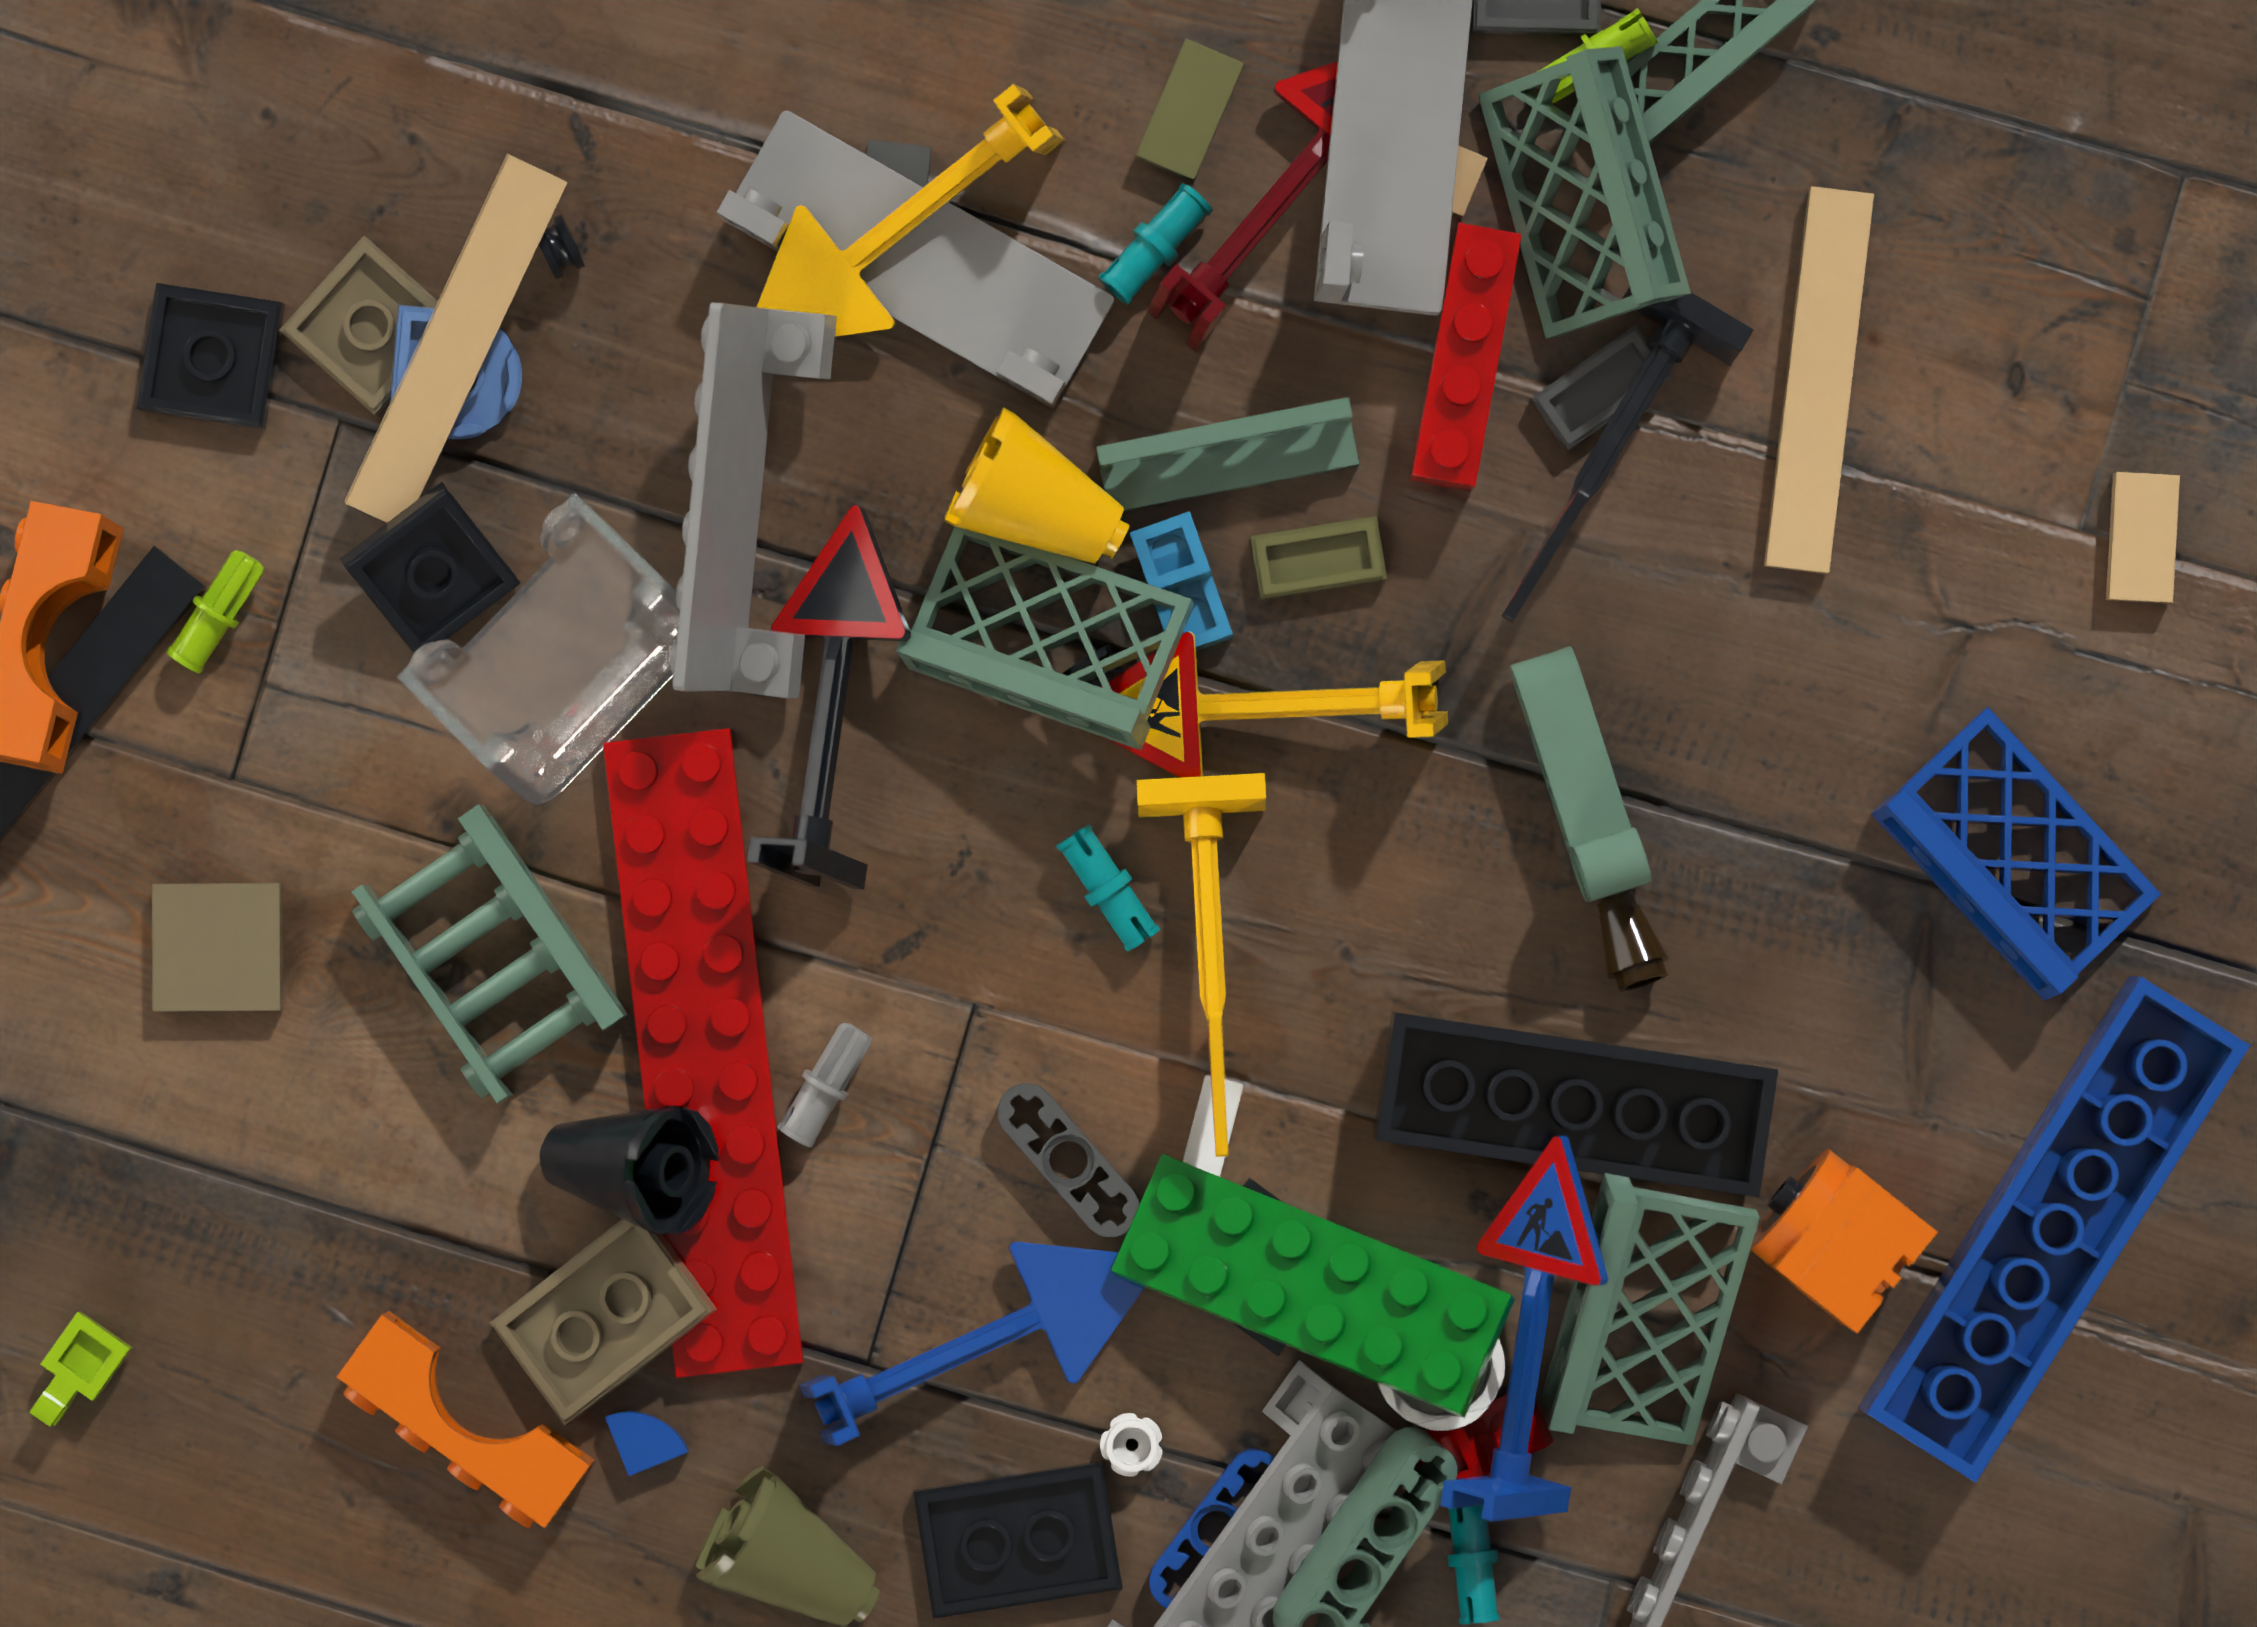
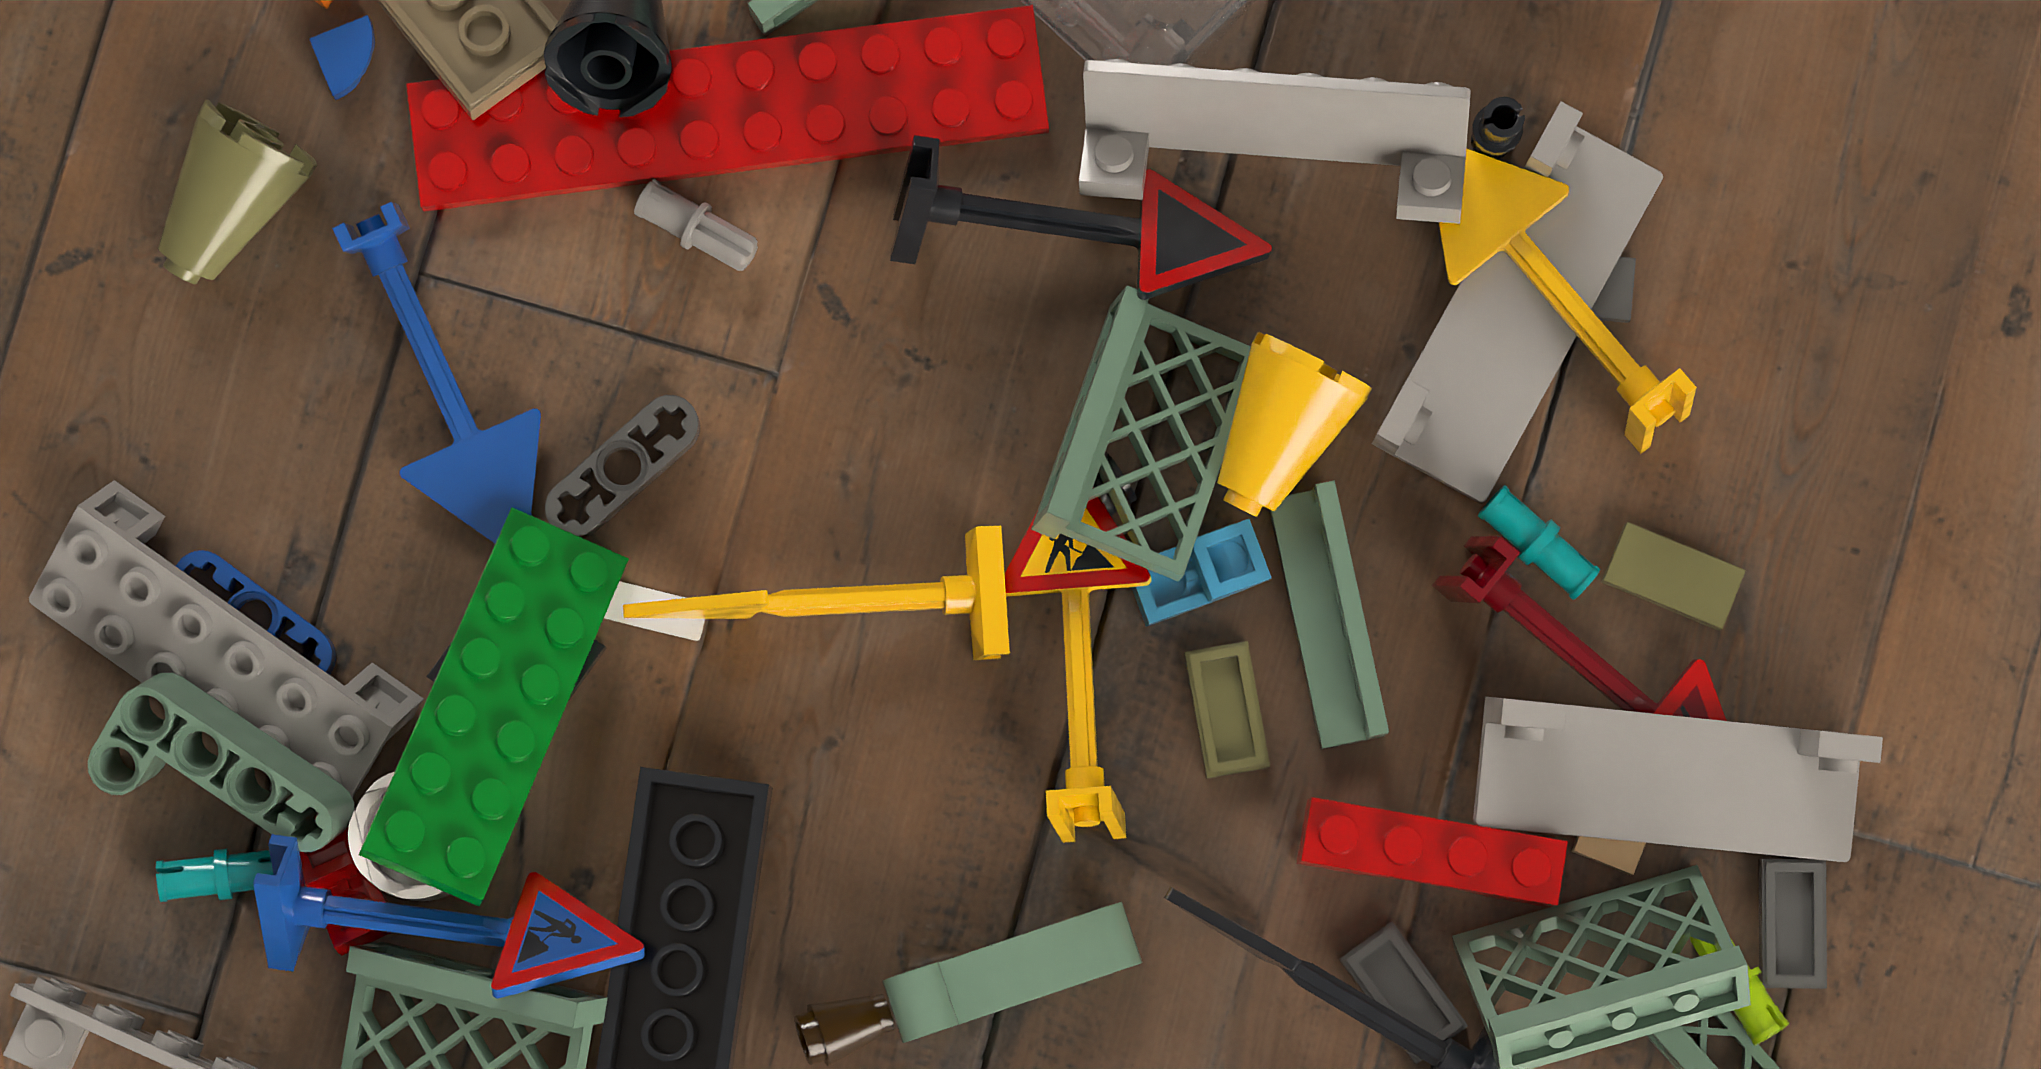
camera: 85 degrees right, 5 degrees down
(728, 267) = (1498, 127): none -> black pin
(1017, 1539) = (245, 422): black tile -> none
(1108, 887) = (894, 502): teal pin -> none
(1130, 1427) = (324, 523): white plate -> none

